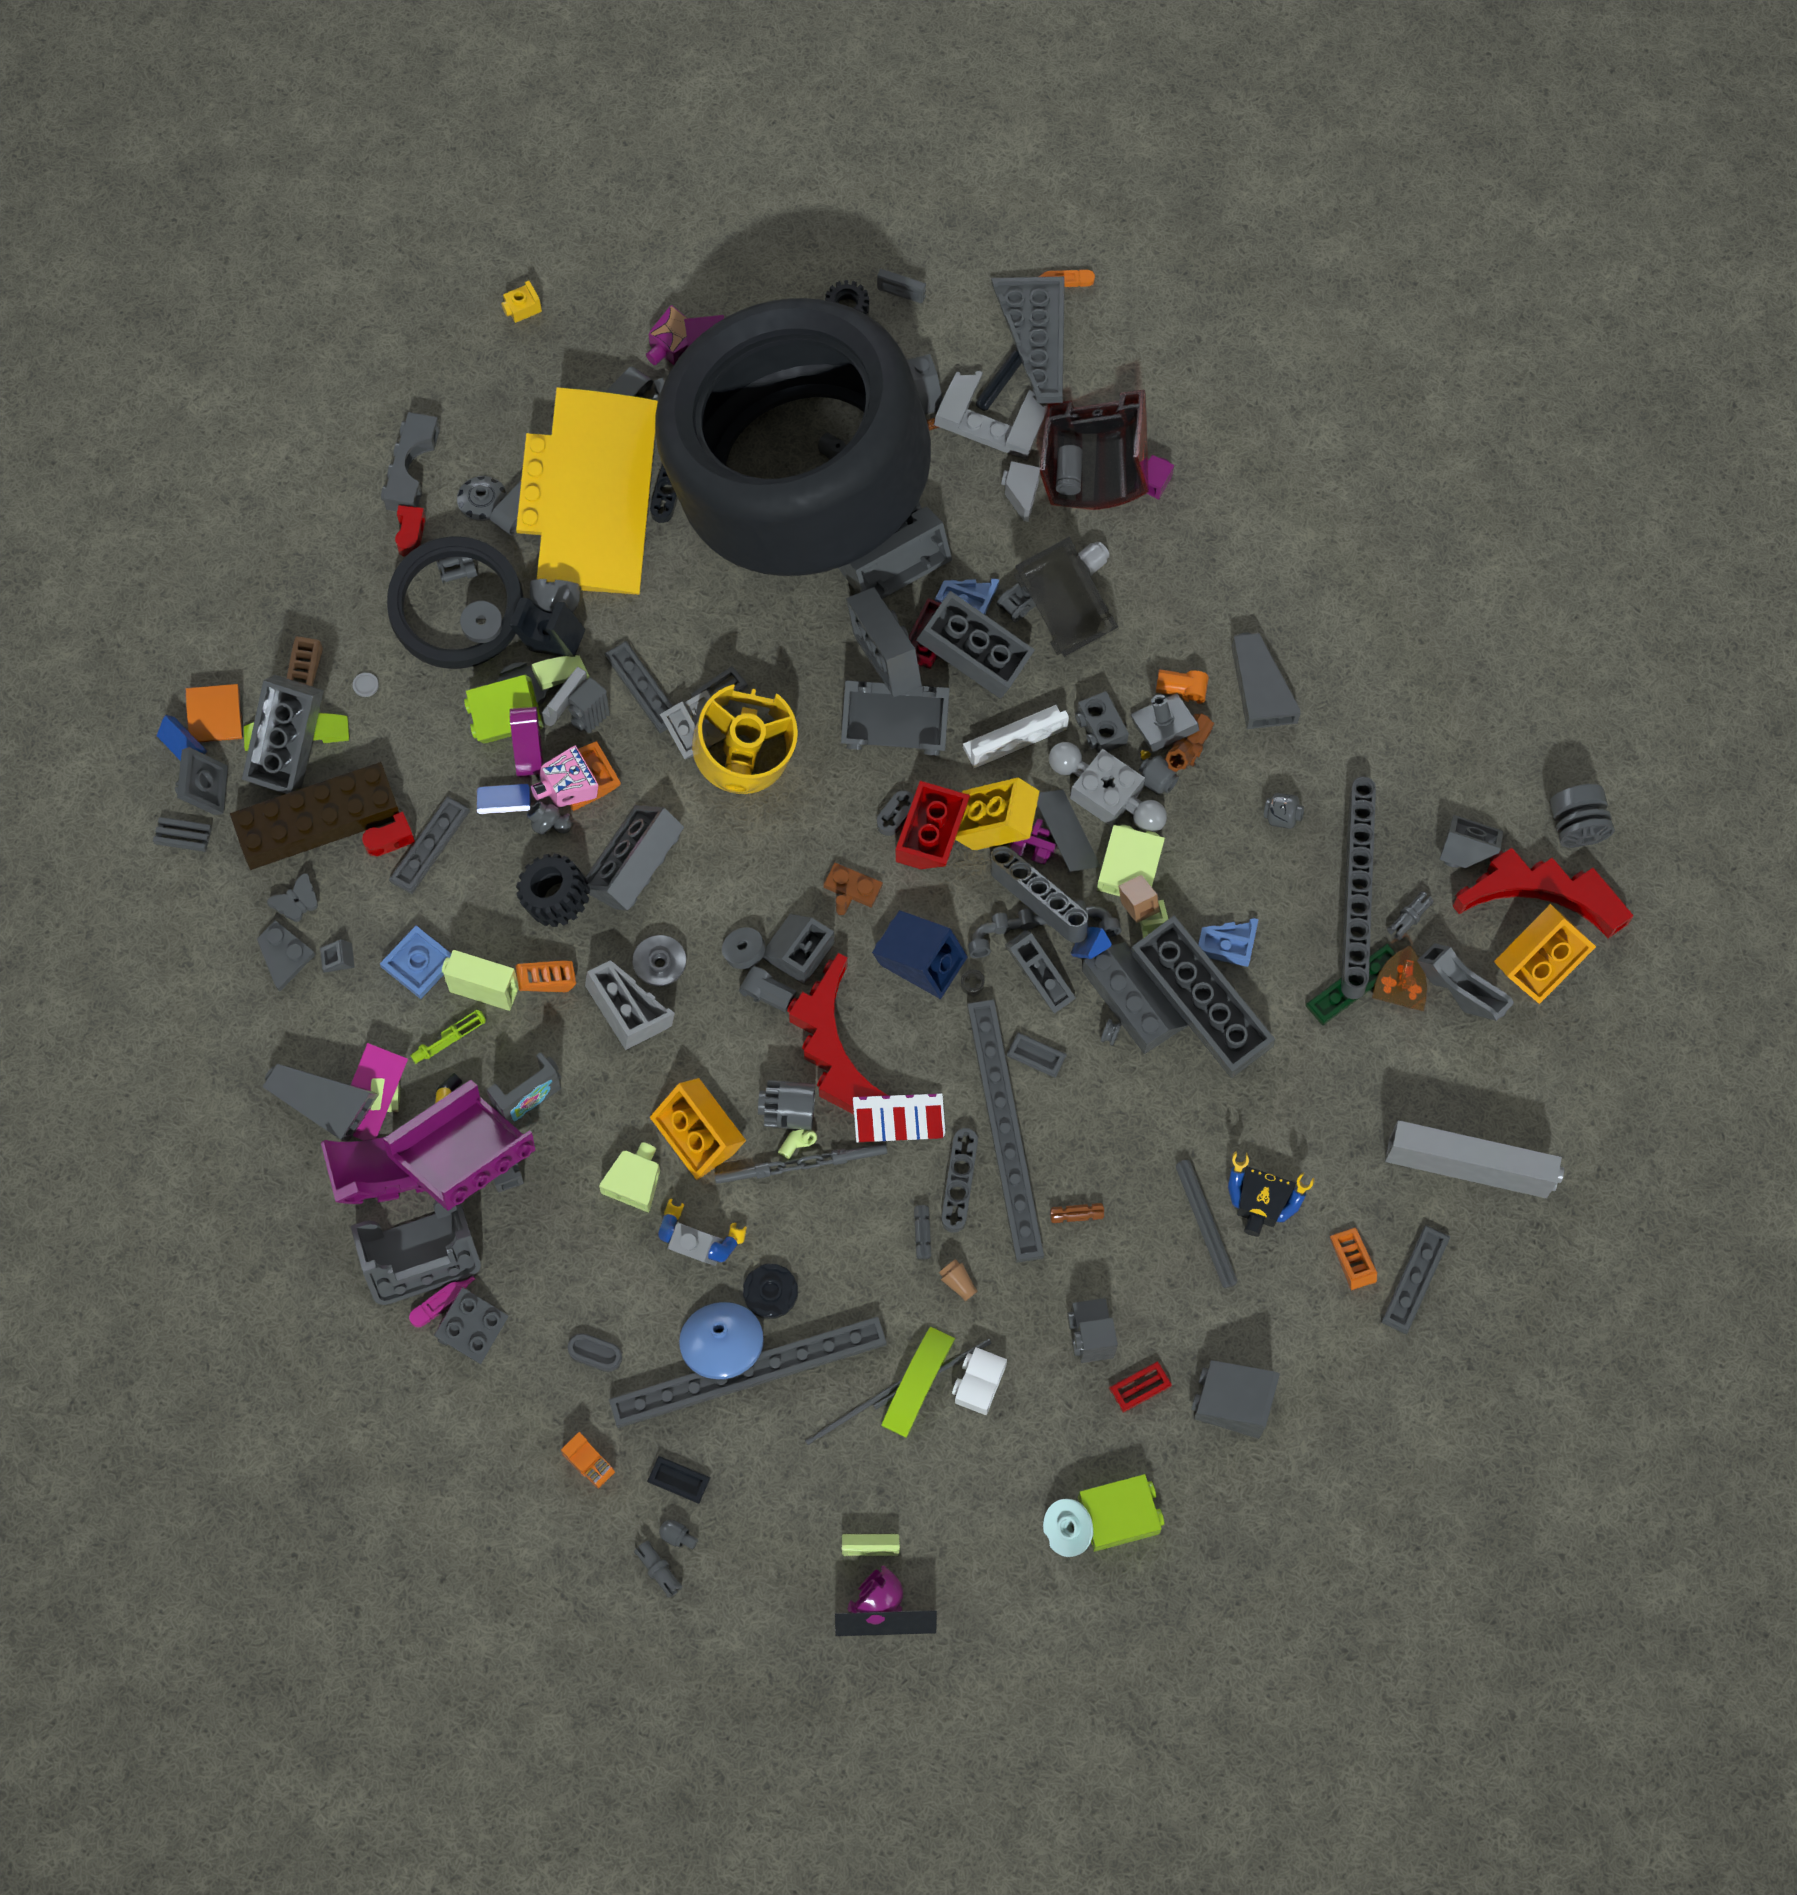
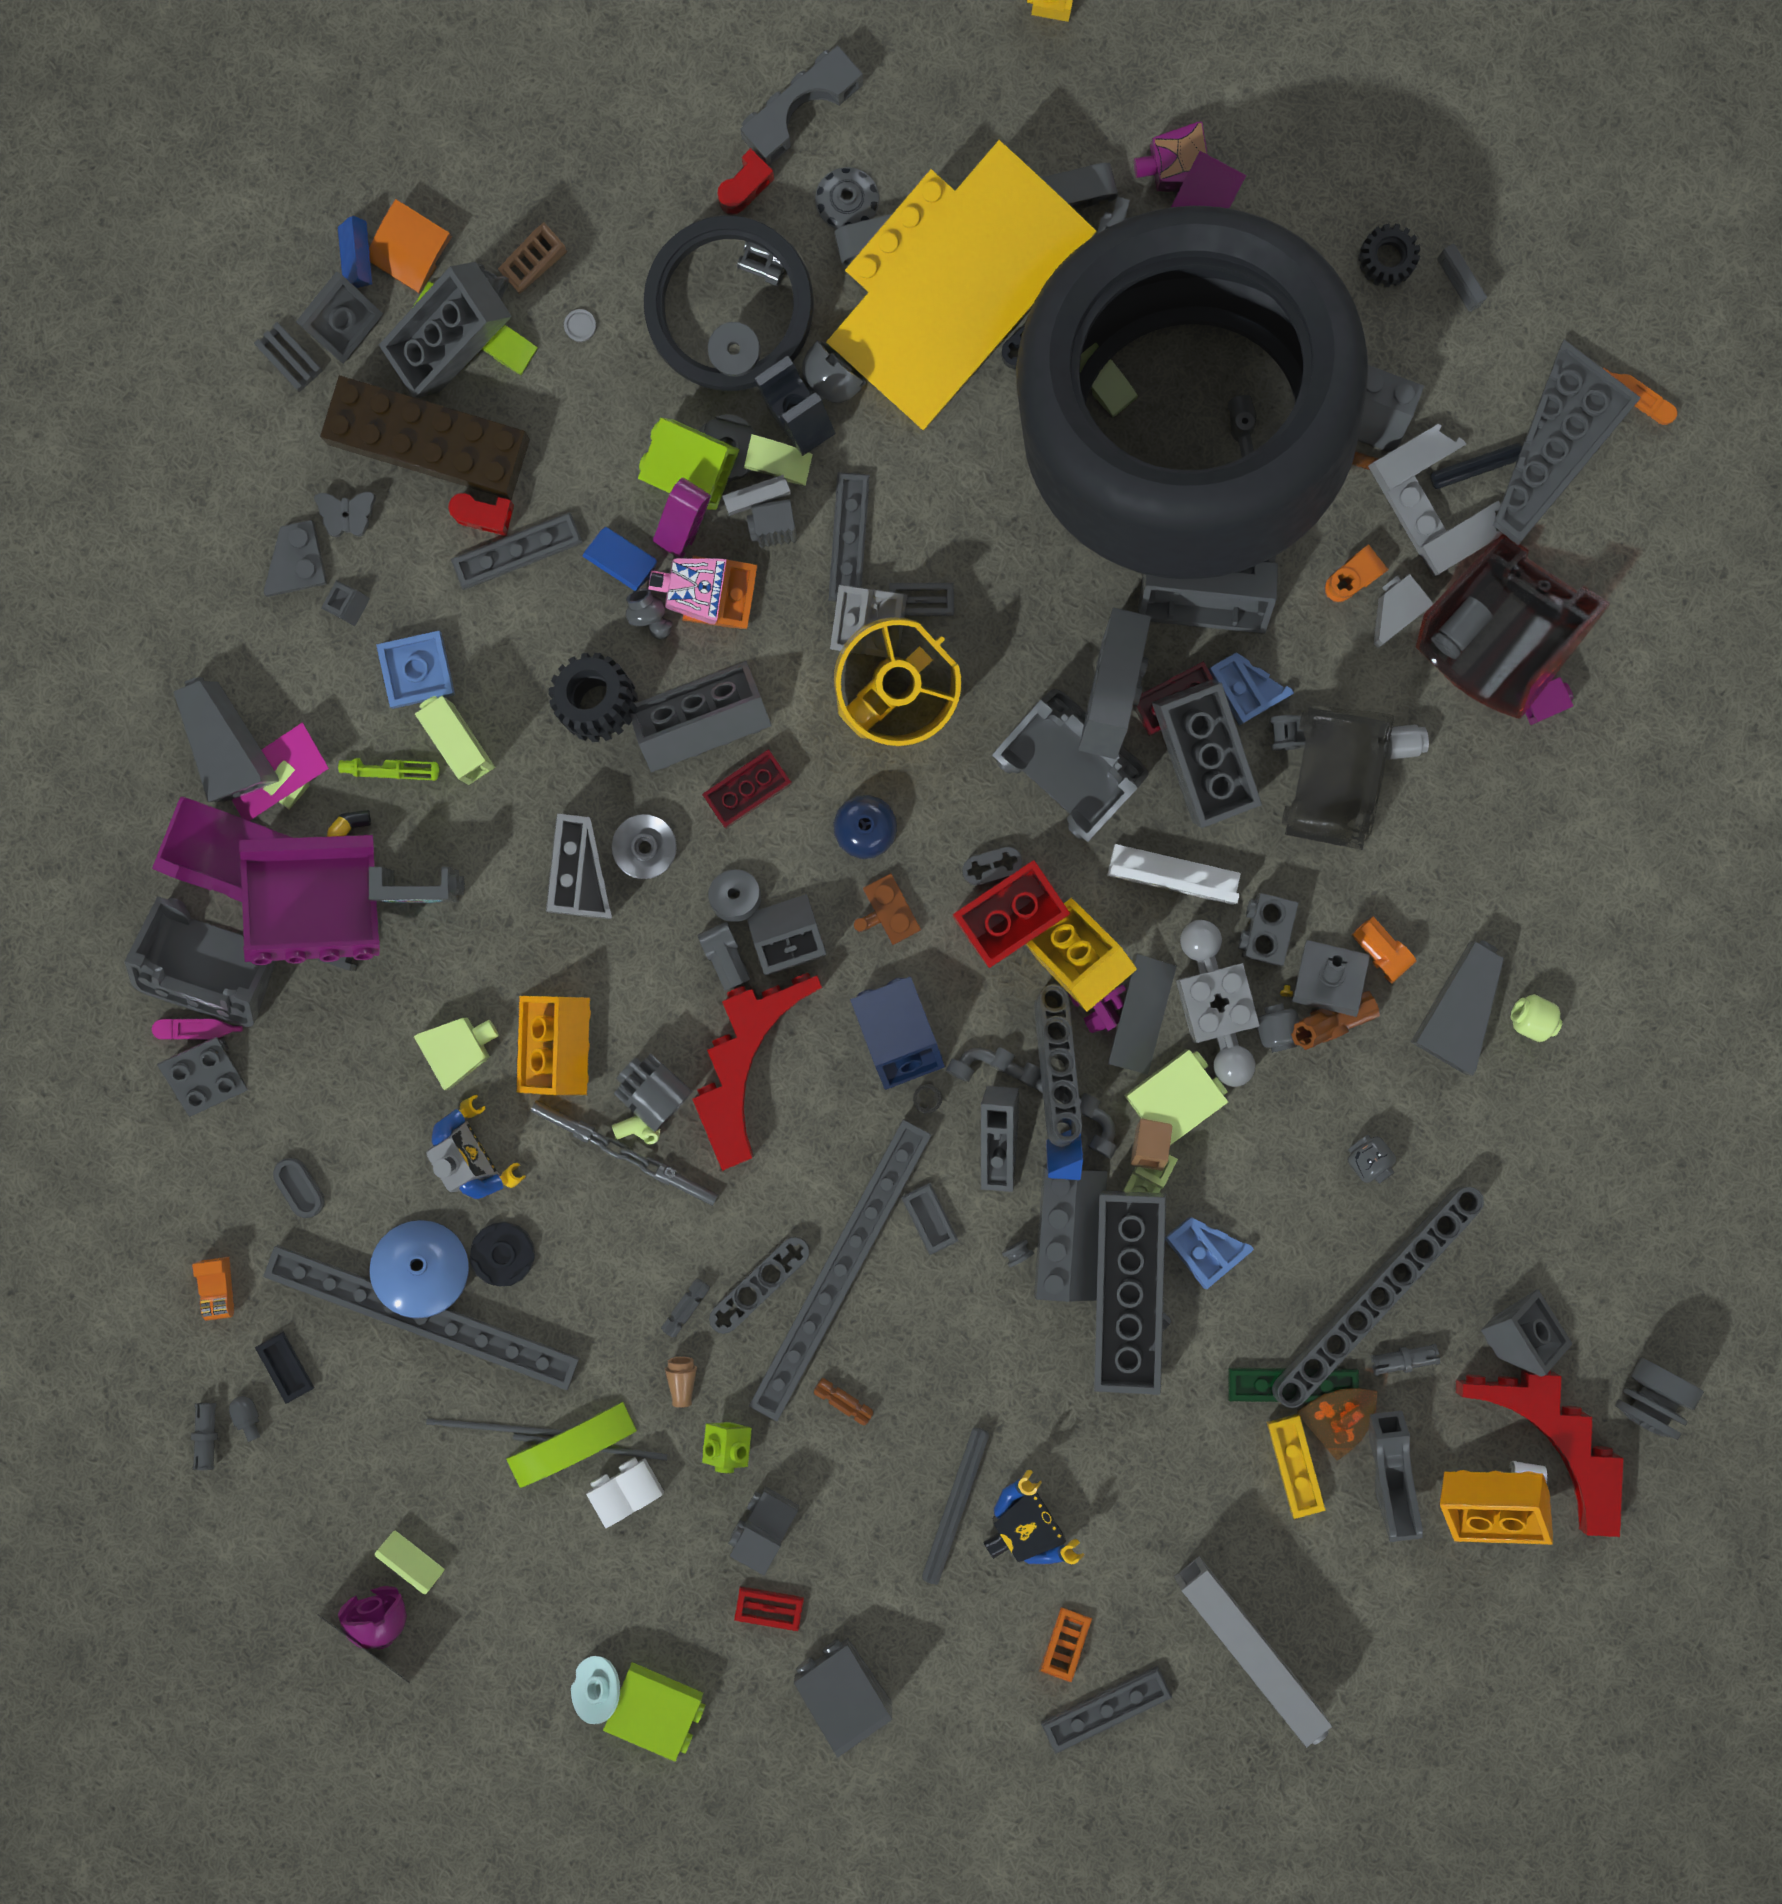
camera: 40 degrees right, 20 degrees up
(562, 974) = (545, 793): orange slope -> none
(699, 878) = (747, 789): none -> dark red piece
(794, 847) = (870, 842): none -> dark blue cylinder
(899, 1117) = (746, 1184): sticker -> none
(978, 489) = (1357, 572): none -> orange piece
(1023, 1295) = (726, 1446): none -> lime brick
(1309, 656) = (1536, 1018): none -> yellowish green head
(1400, 1030) = (1295, 1466): none -> yellow plate

